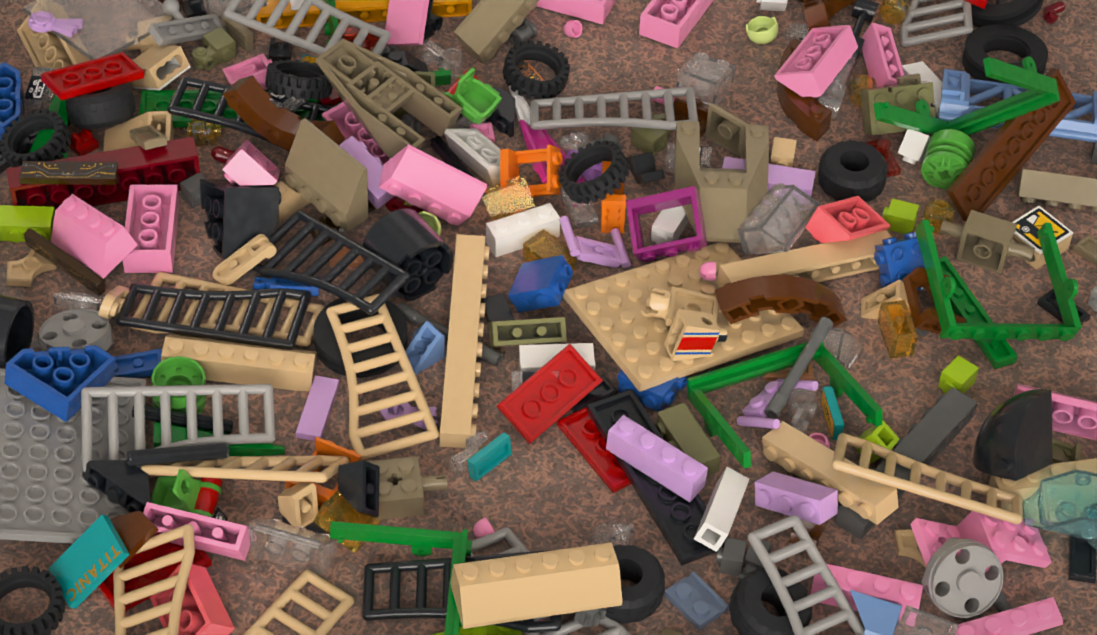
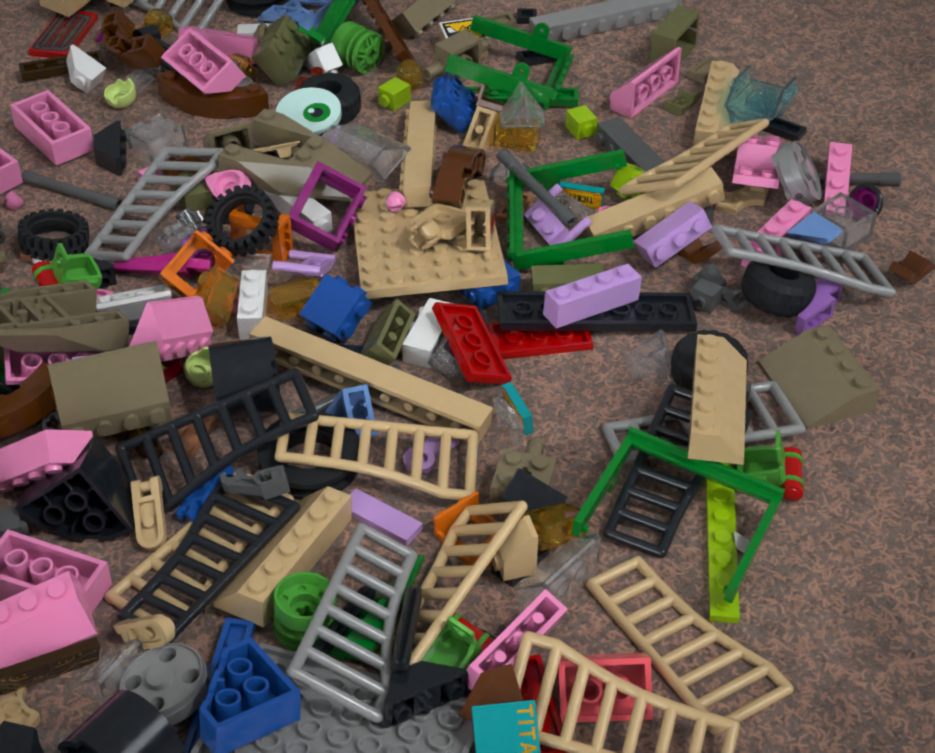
camera: 65 degrees left, 5 degrees down
(297, 314) = (264, 483): none -> dark grey piece
(482, 528) = (598, 439): bright pink hinge -> none
(610, 34) = (39, 180): none -> dark grey piece
(657, 151) = (224, 180): none -> bright pink piece
(676, 53) = (111, 148): none -> black slope
(696, 600) = (744, 330): sand blue plate -> none
(719, 155) = (283, 150): none -> tan piece
(721, 509) = (667, 280): white brick -> none
(802, 160) = (312, 108): none -> light aqua tile
(845, 221) = (393, 115): coral slope -> none
(910, 316) = (522, 110): none -> clear slope
(1016, 436) = (679, 100): black brick -> none

